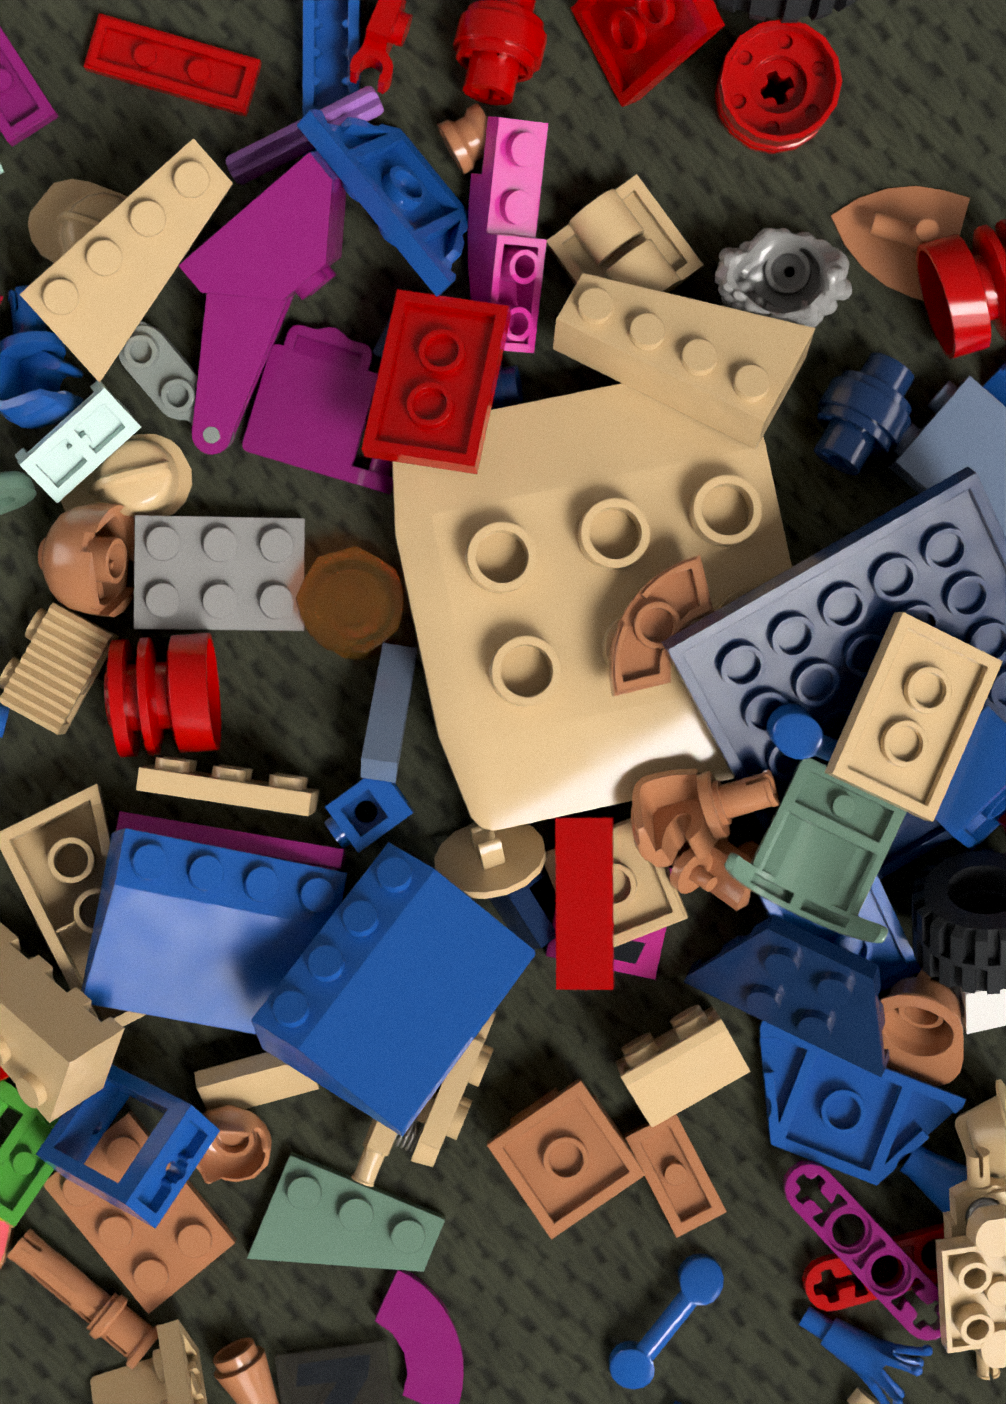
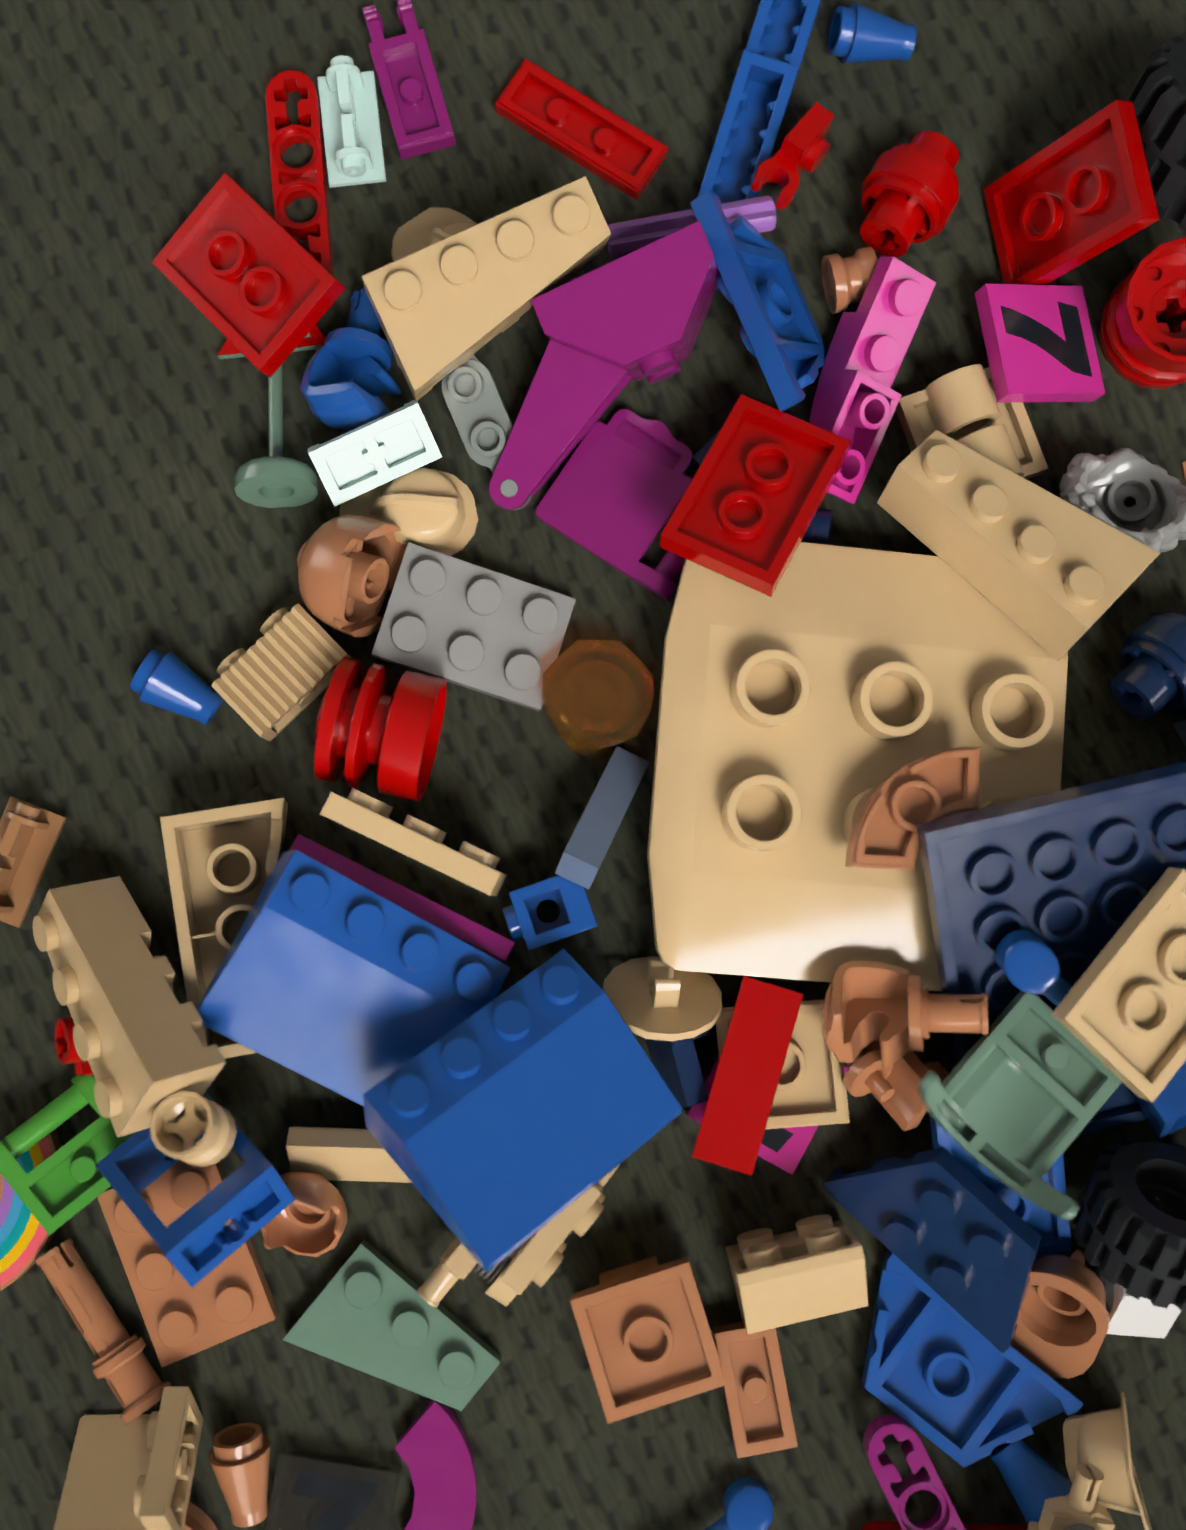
camera: 15 degrees right, 5 degrees down
(102, 1090) = (179, 1123): none -> tan wheel
(662, 147) = (1039, 343): none -> dark pink tile

